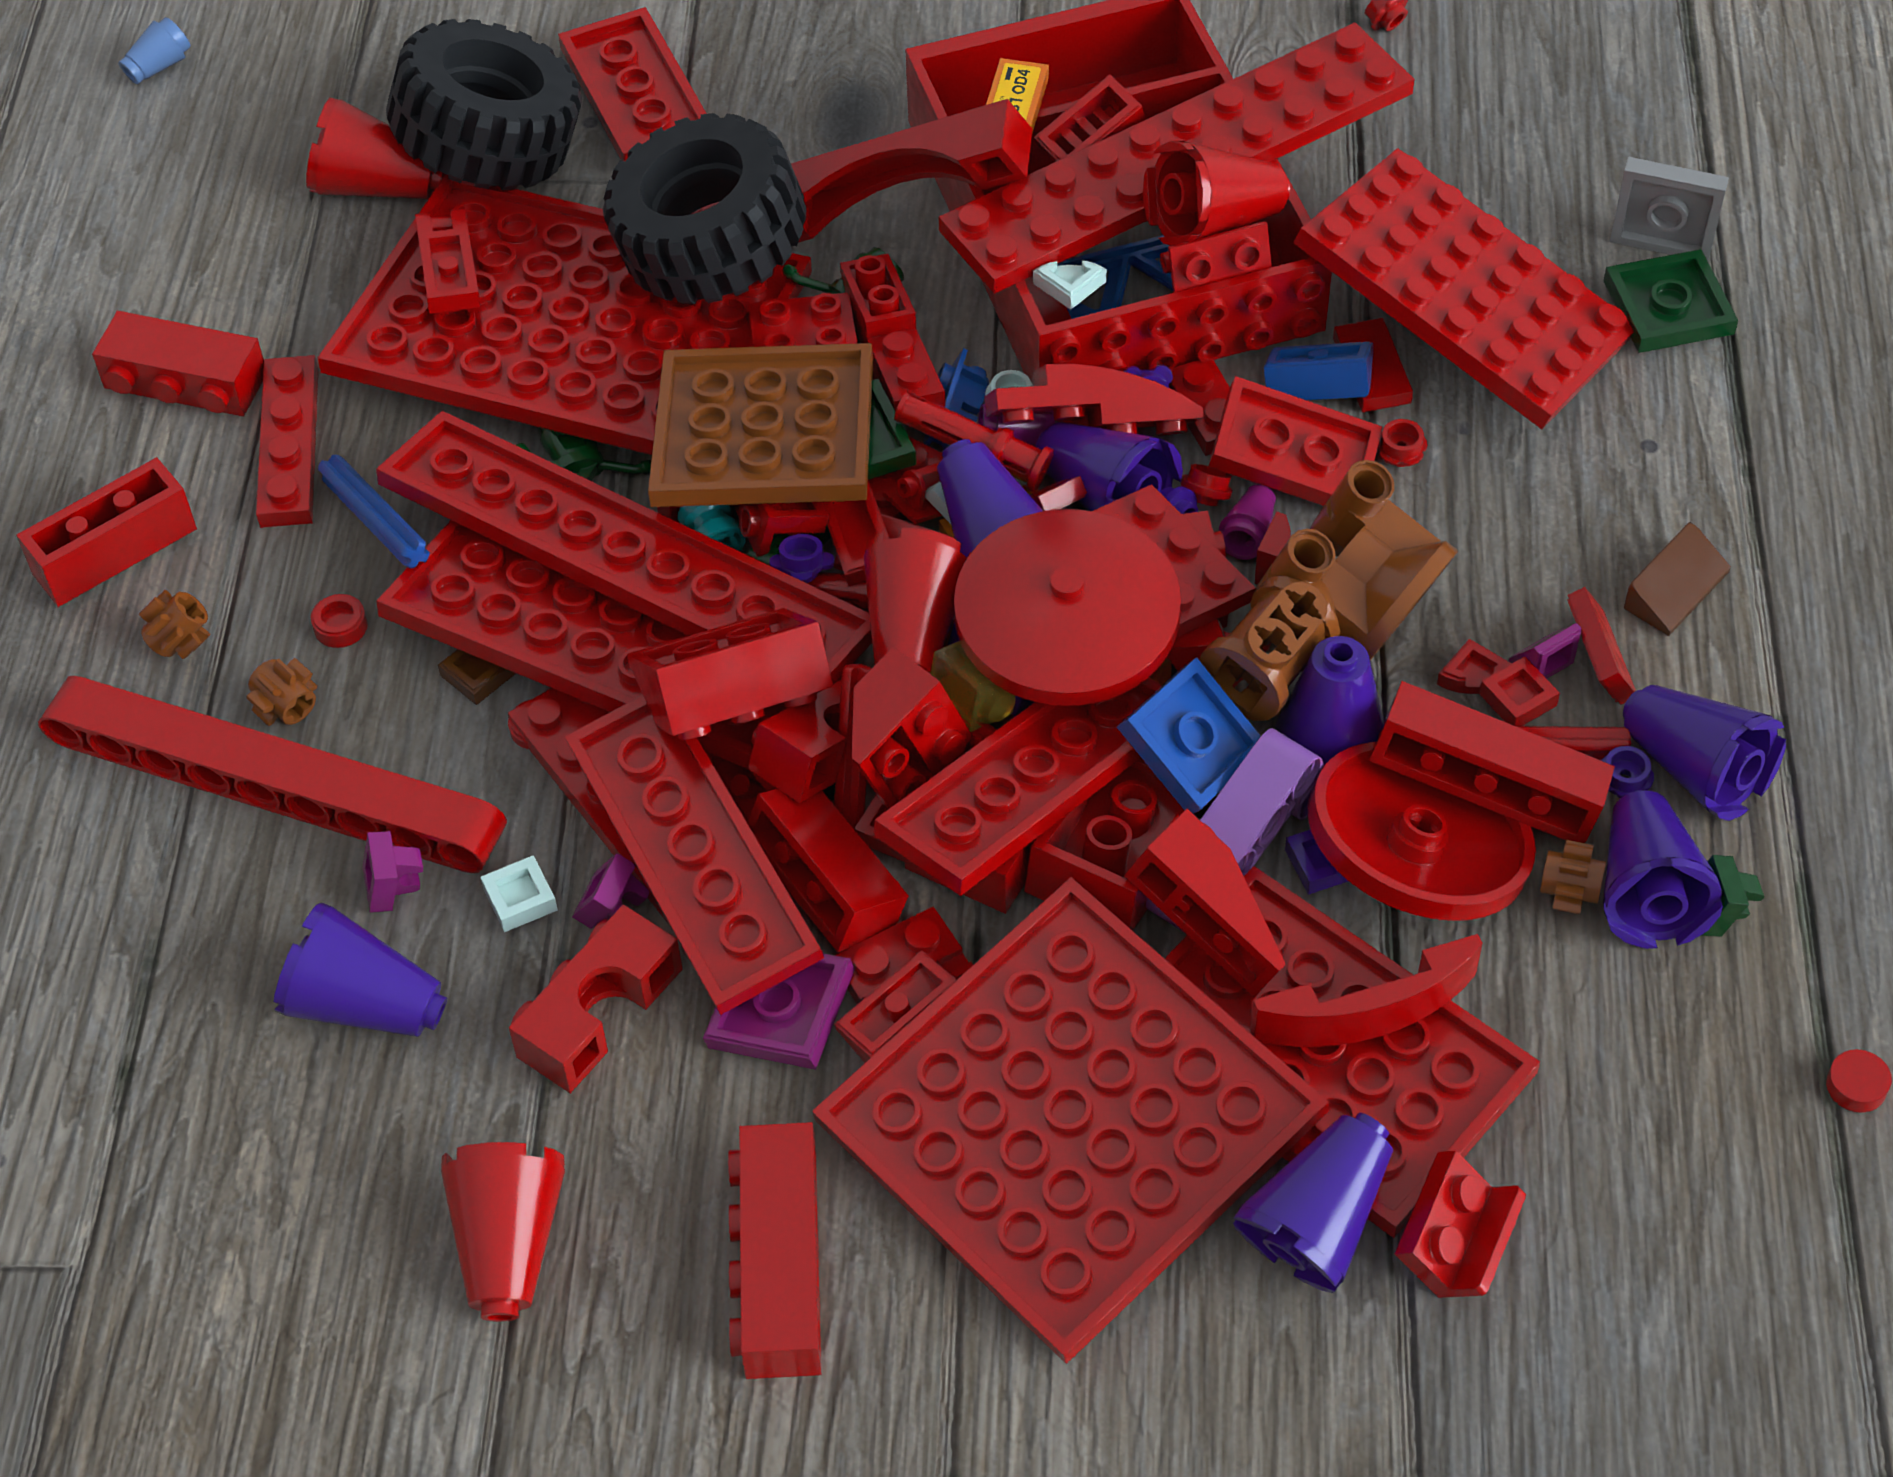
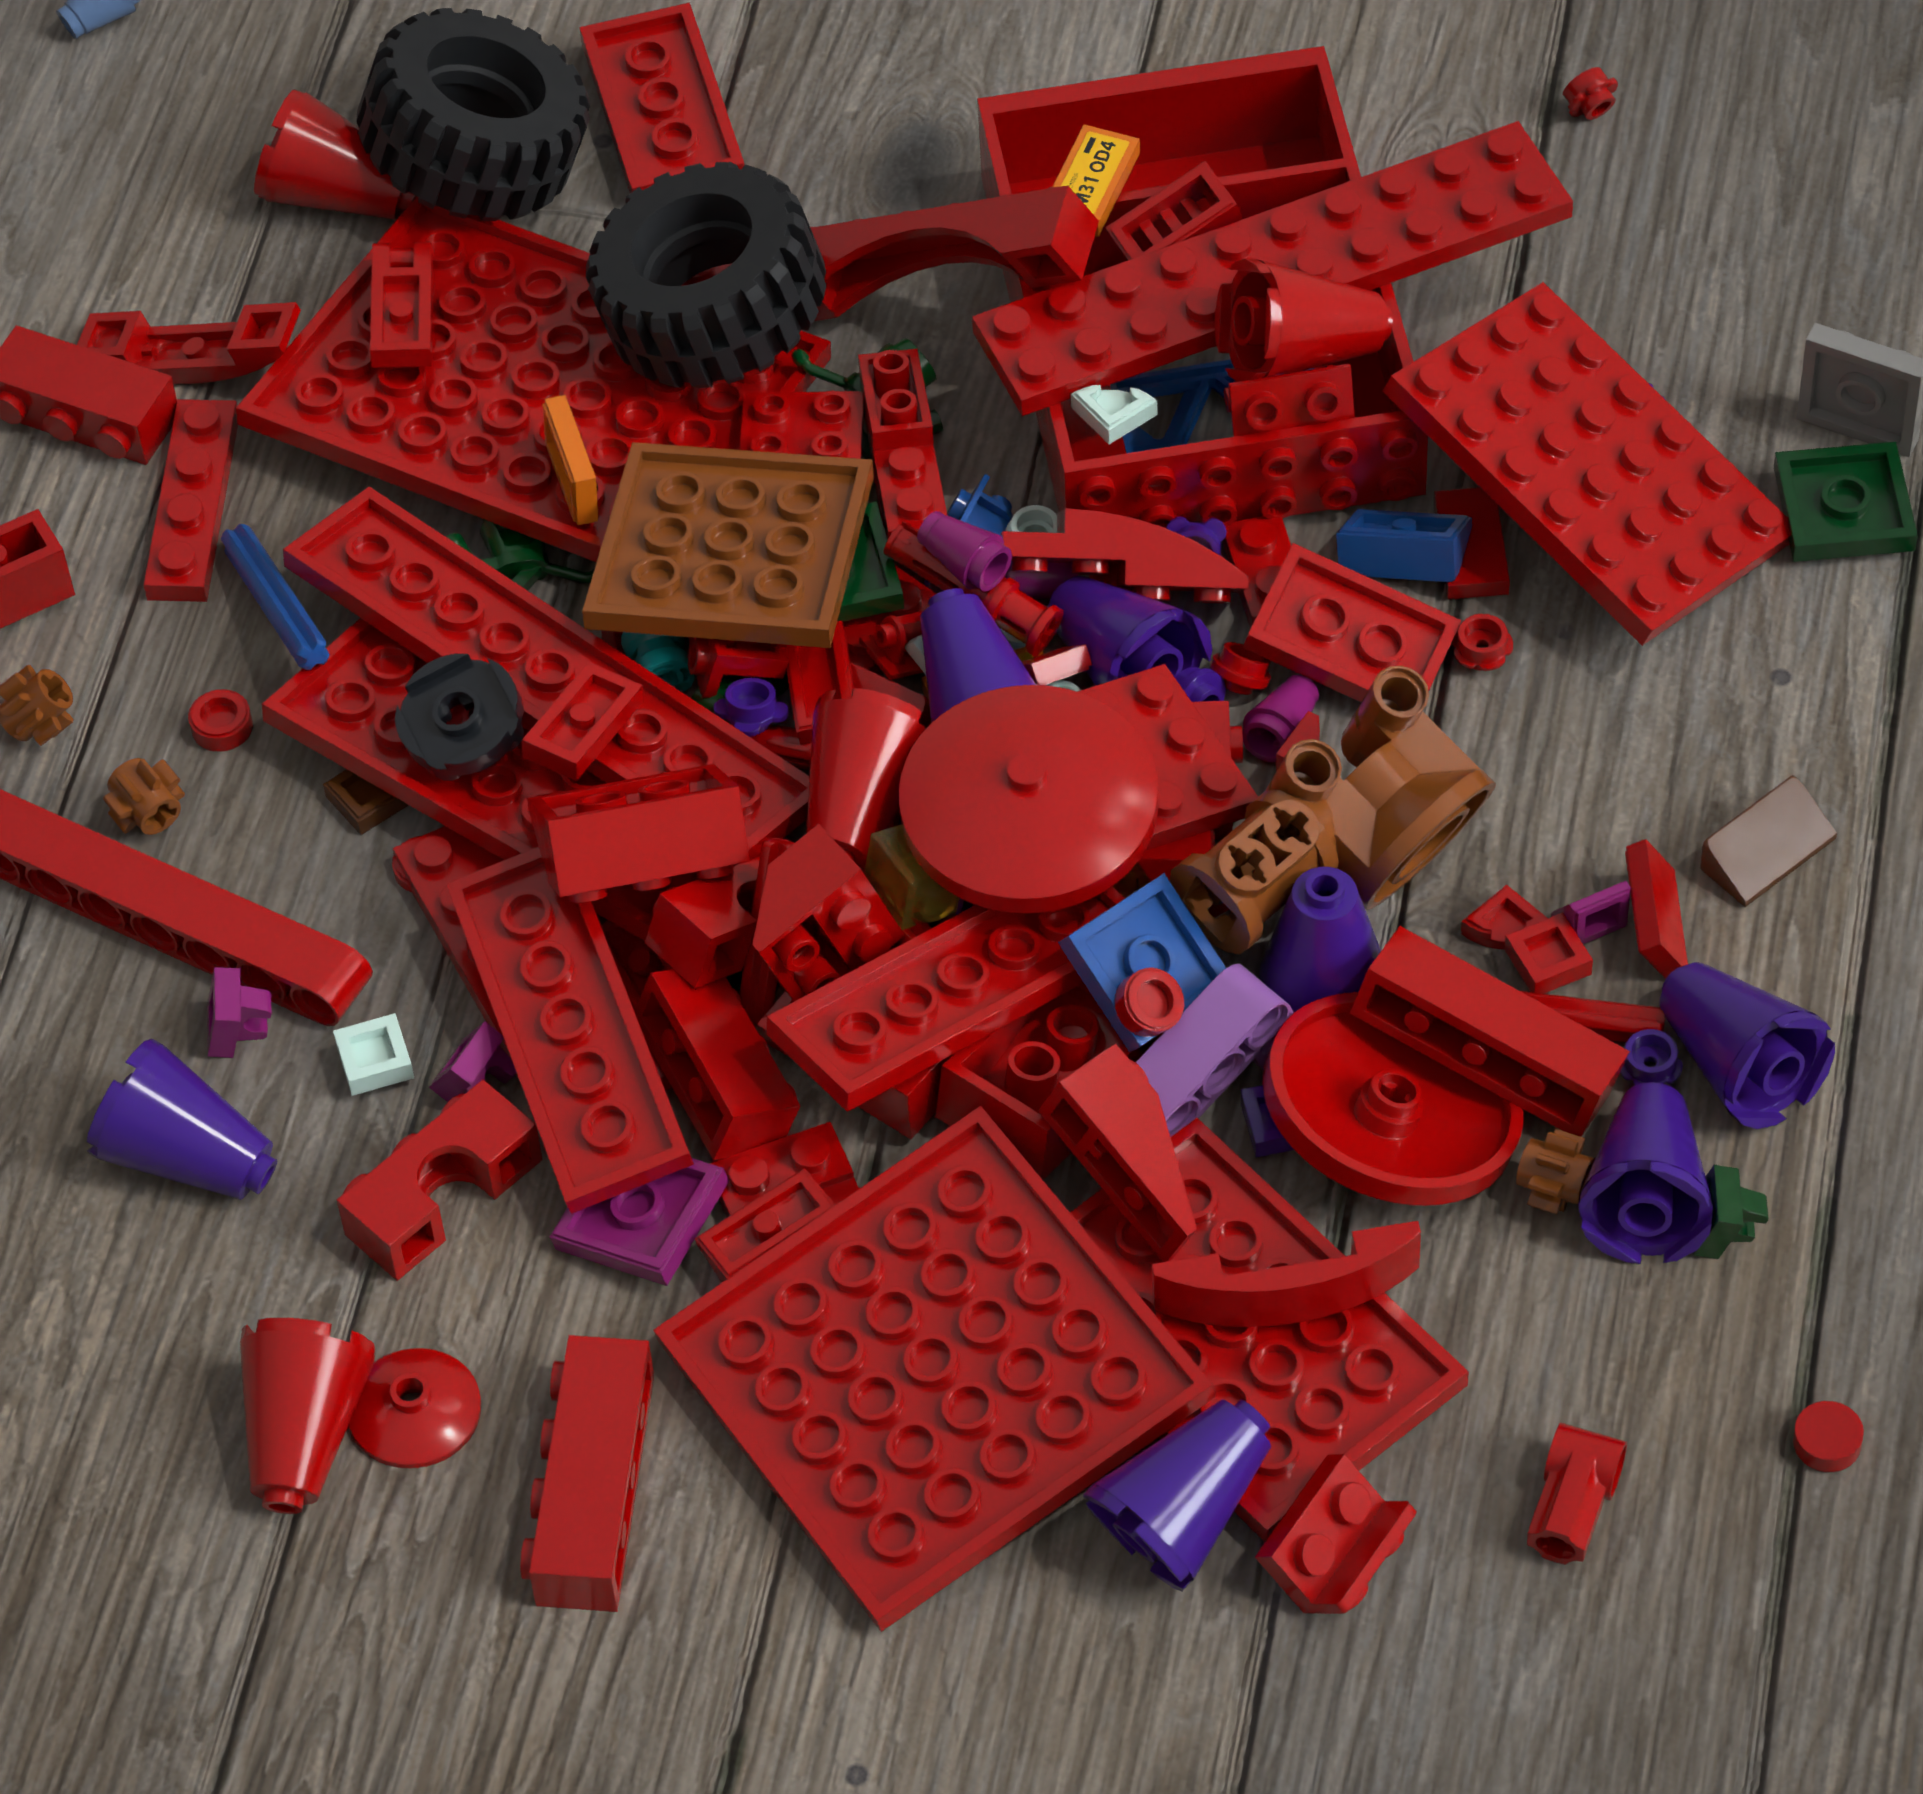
camera: 10 degrees right, 0 degrees up
(280, 317) = (195, 350): none -> red slope
(560, 618) = (480, 740): none -> black plate
(614, 370) = (570, 460): none -> orange tile
(615, 1228) = (421, 1429): none -> red dish
(662, 584) = (582, 721): none -> red plate
(968, 407) = (967, 551): none -> magenta cone
(1203, 770) = (1149, 1002): none -> red tile
(1658, 1145) = (1578, 1478): none -> red piece

